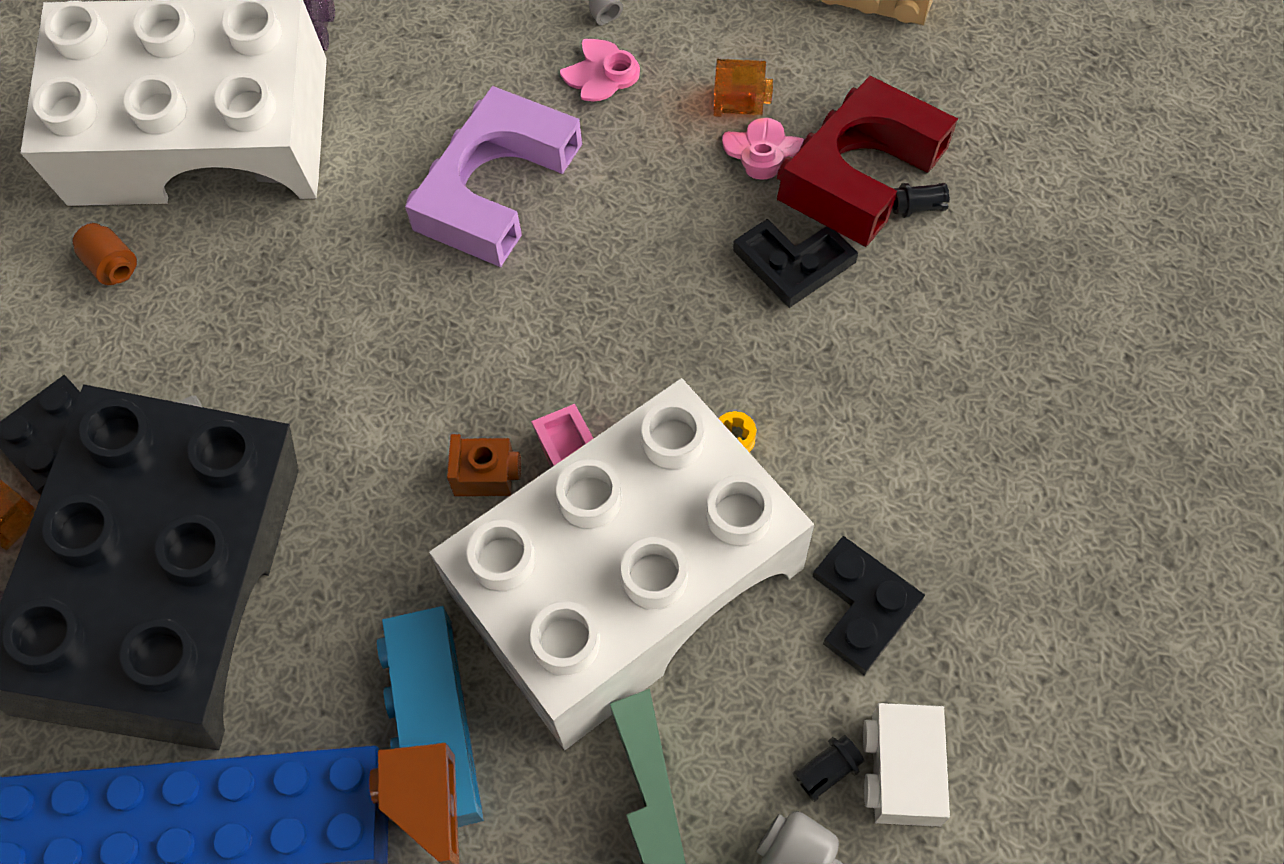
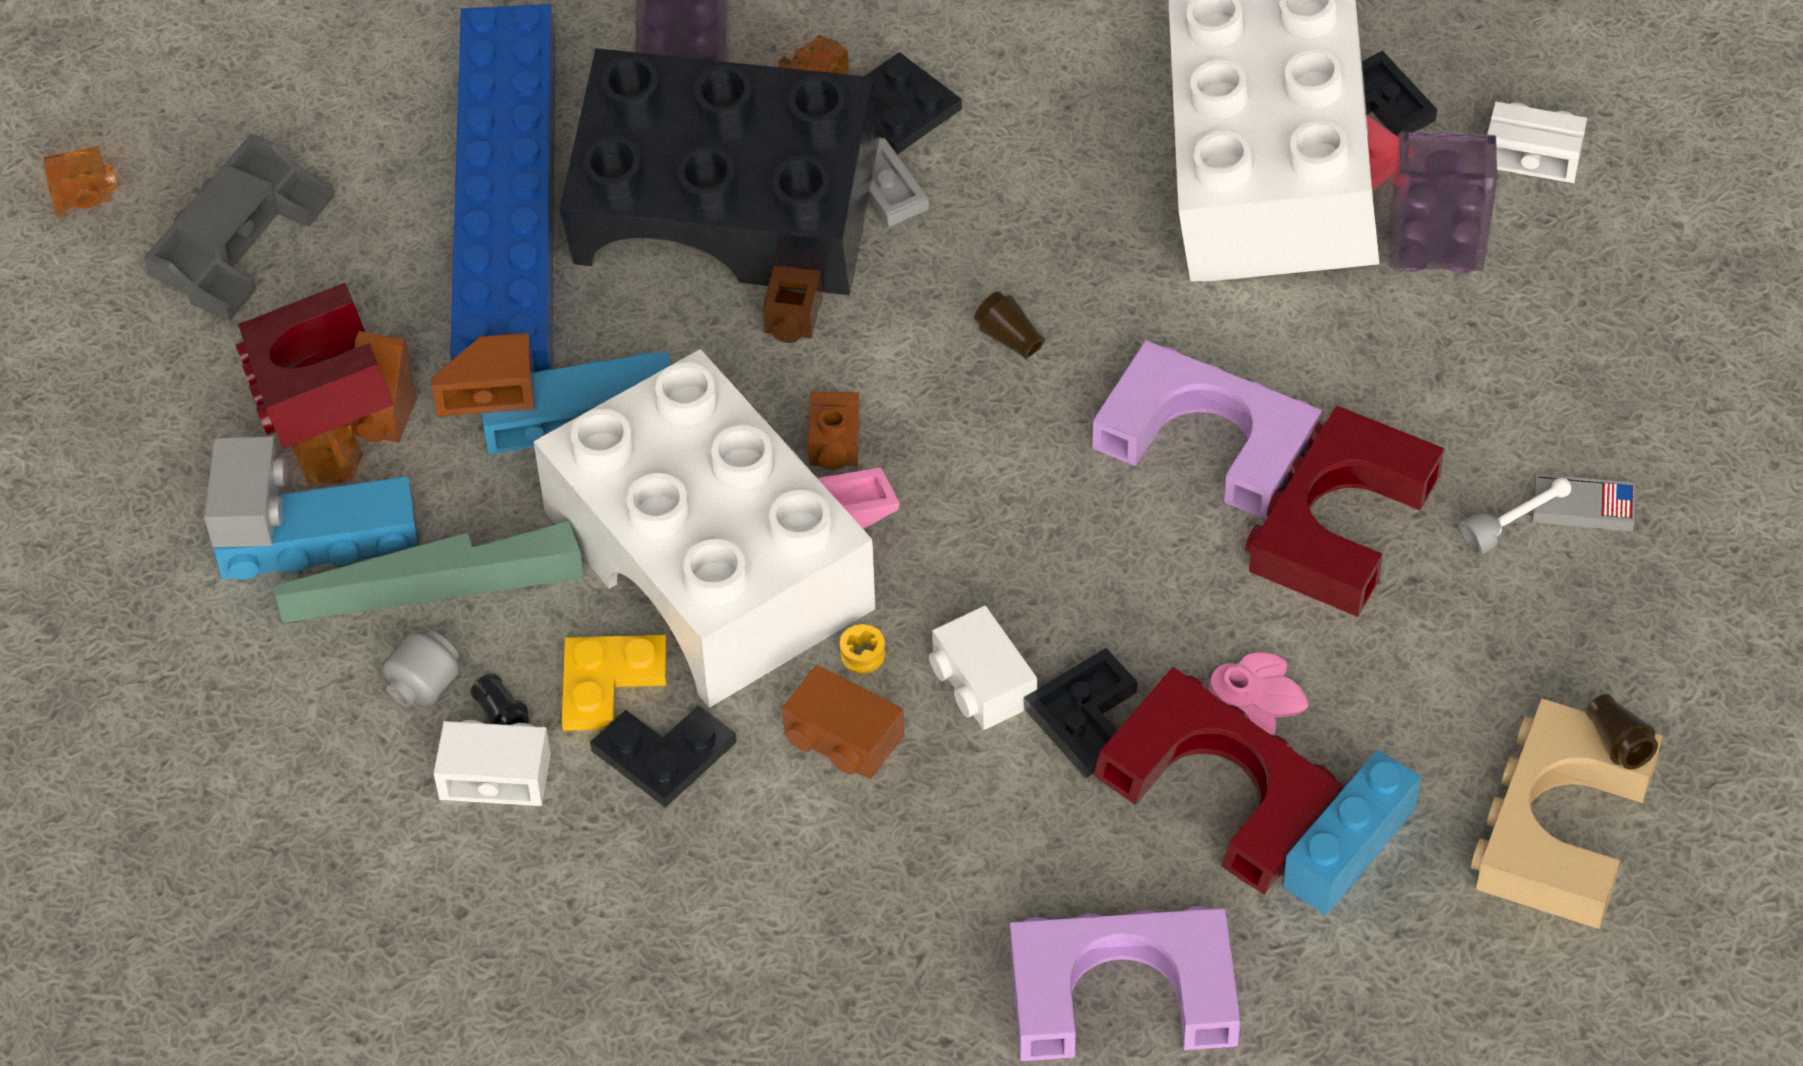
camera: 90 degrees right, 10 degrees down
(104, 254) = (1104, 107): dark orange brick -> none
(304, 503) = (792, 313): none -> reddish brown brick
(360, 326) = (1007, 323): none -> dark brown cone
(602, 70) = (1380, 529): bright pink plate -> none
(615, 118) = (1342, 454): none -> dark red arch
(741, 87) = (1339, 674): clear orange brick -> none
(759, 331) = (982, 667): none -> white brick
(772, 678) = (600, 665): none -> yellow plate
(827, 440) = (842, 722): none -> dark orange brick
(883, 58) = (1351, 832): none -> dark azure brick
(920, 199) = (1170, 832): black pin -> none
(1047, 272) = (1182, 945): none -> lavender arch

